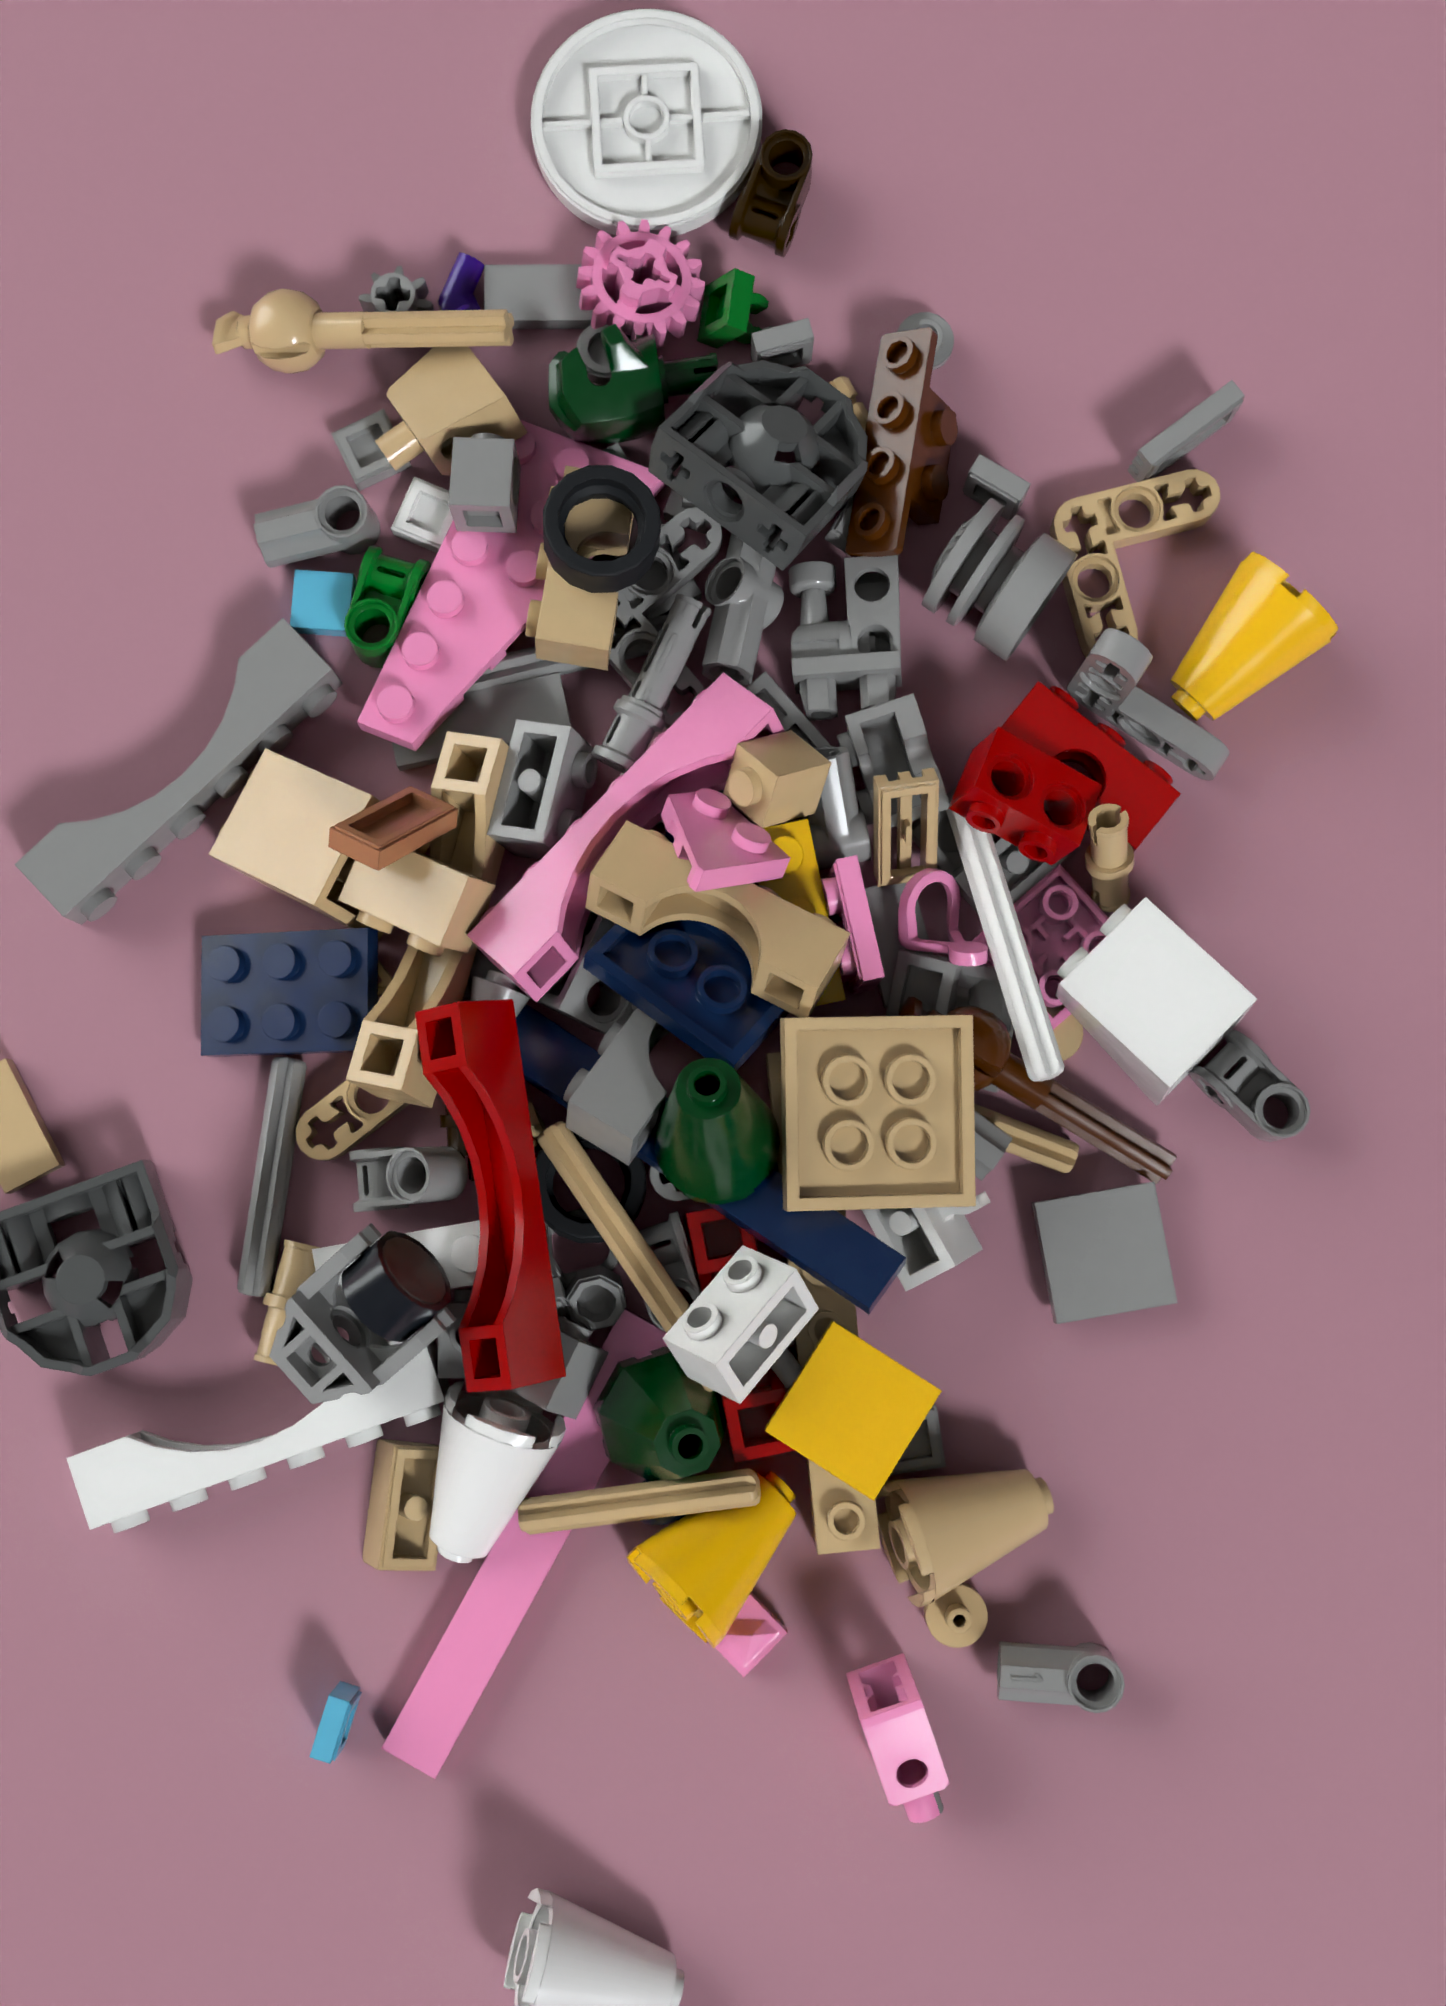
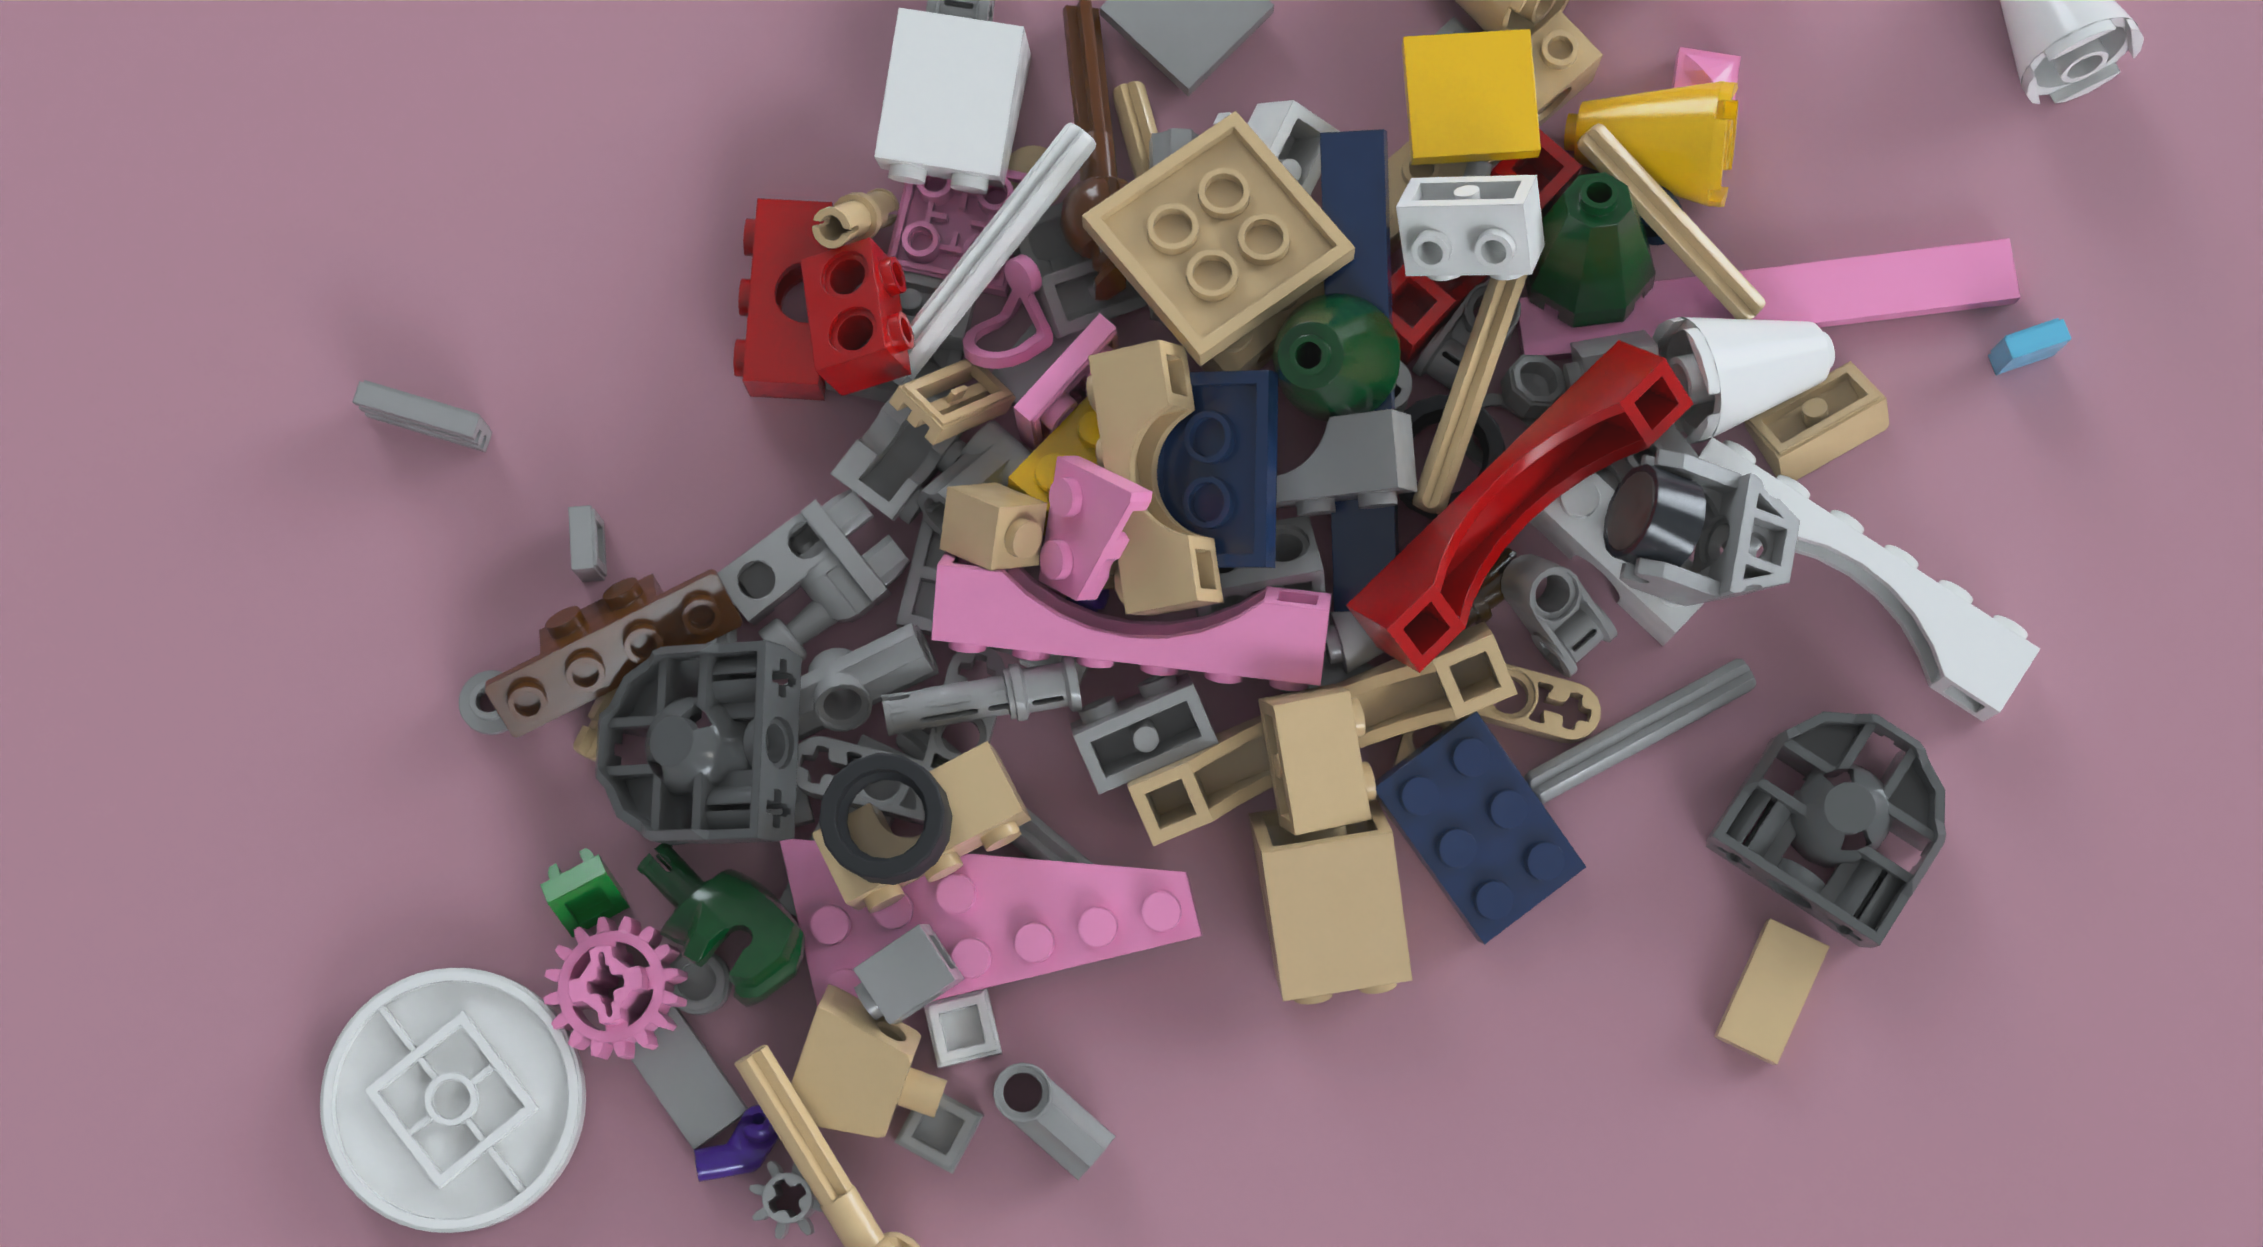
camera: 125 degrees left, 5 degrees down
(89, 861) = (1492, 1091): light grey arch -> none
(293, 1270) = (1733, 635): tan pin -> none
(321, 602) = (1111, 1064): medium azure tile -> none
(384, 597) = (1069, 1003): green piece -> none
(393, 828) = (1276, 810): nougat tile -> none
(493, 714) = (1102, 827): light grey tile -> none
(773, 201) = (449, 928): dark brown piece -> none
(784, 344) = (584, 822): light grey tile -> none
(997, 578) = (675, 472): light grey wheel -> none
(1109, 689) = (700, 293): light grey beam -> none
(1110, 533) = (563, 426): tan beam -> none
(1249, 639) = (581, 236): yellow cone -> none

